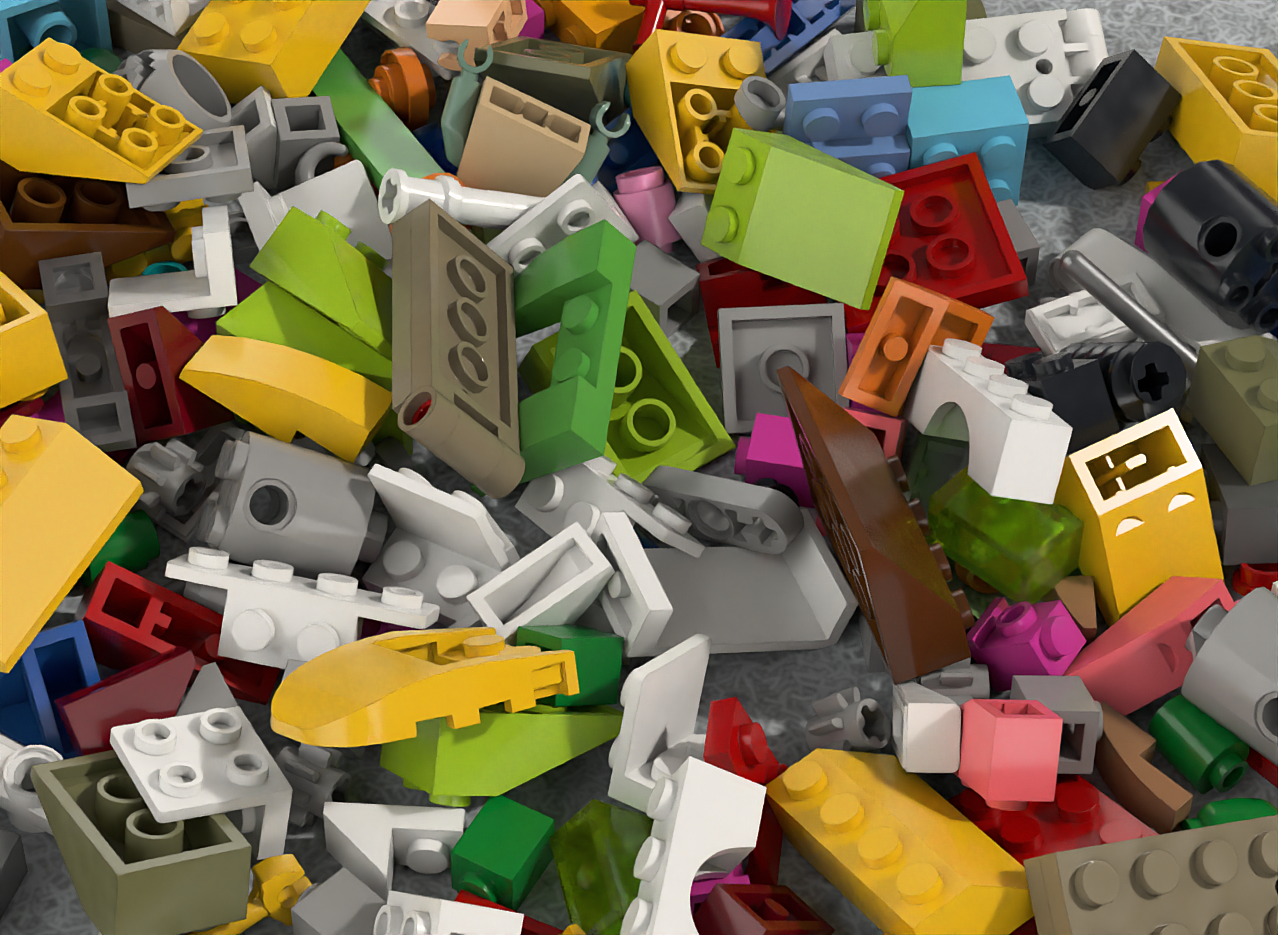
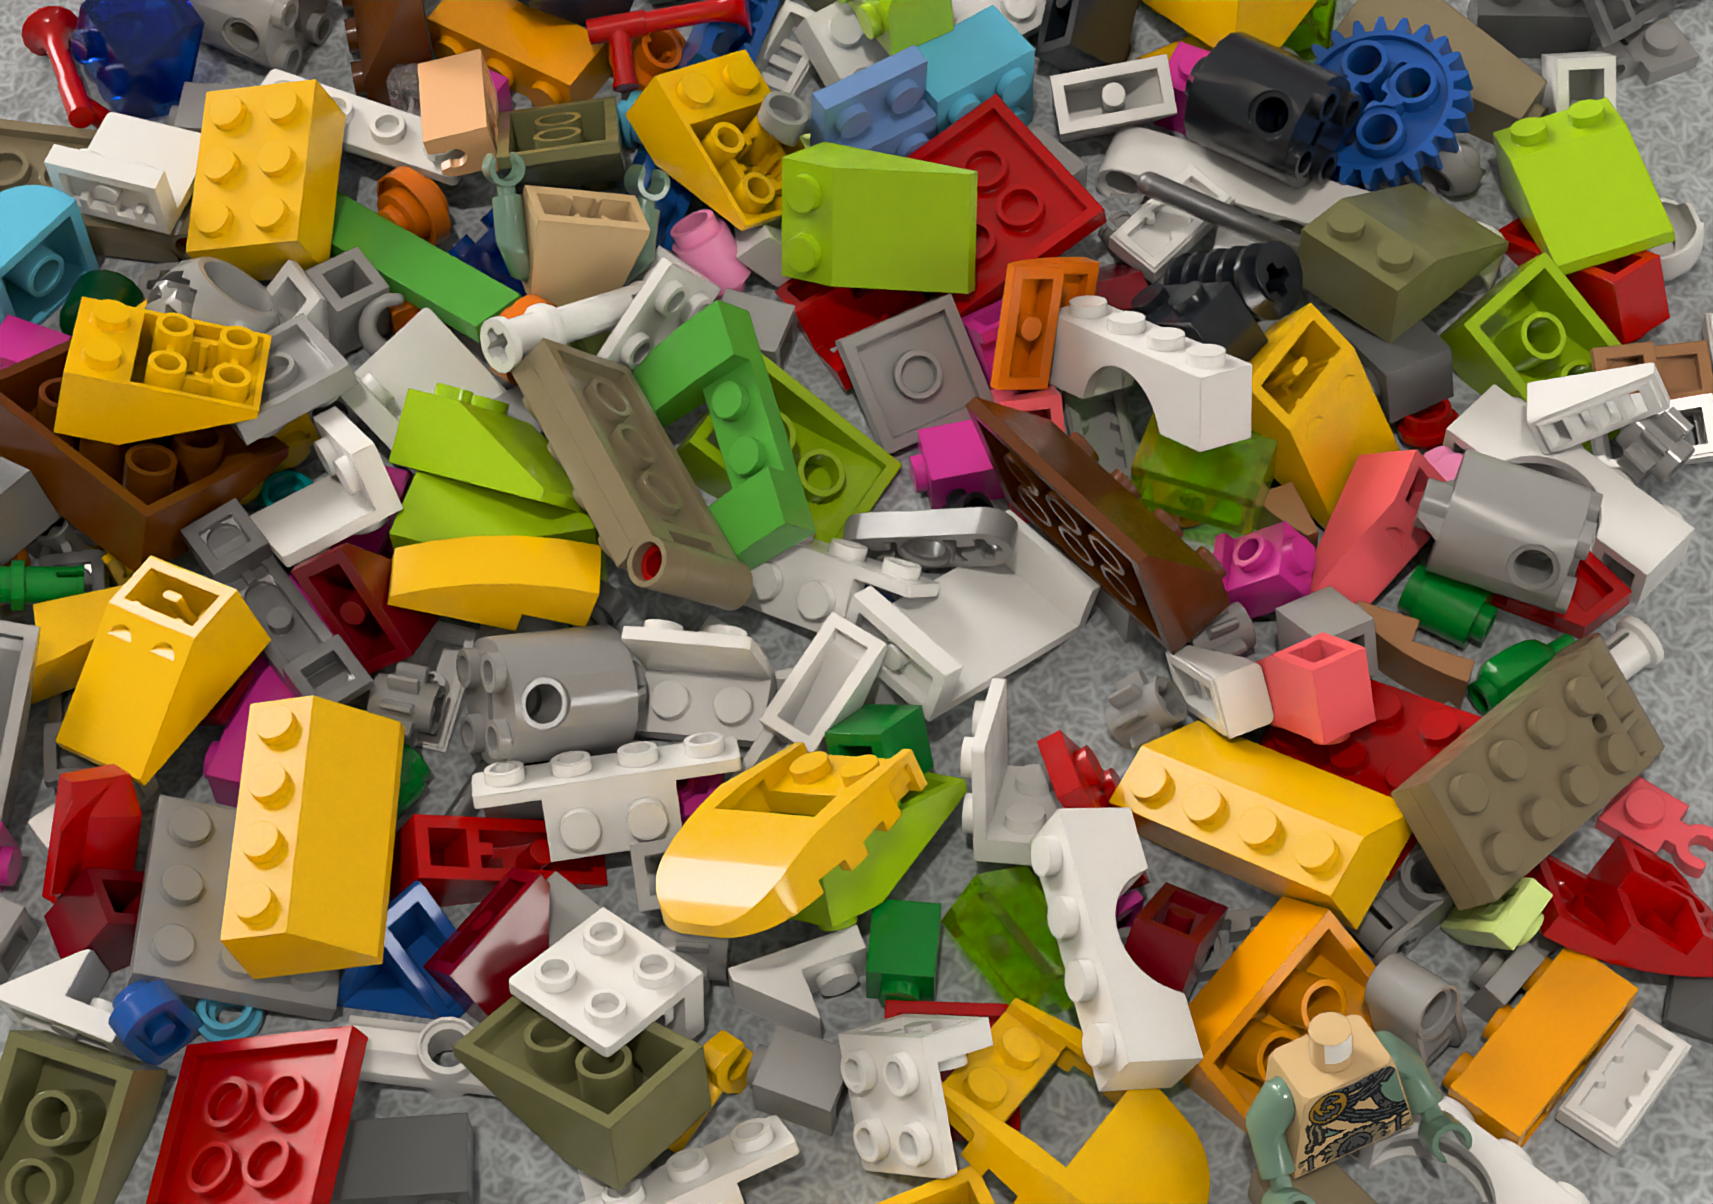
camera: 20 degrees left, 10 degrees up
(1084, 195) = (1112, 97): none -> white slope

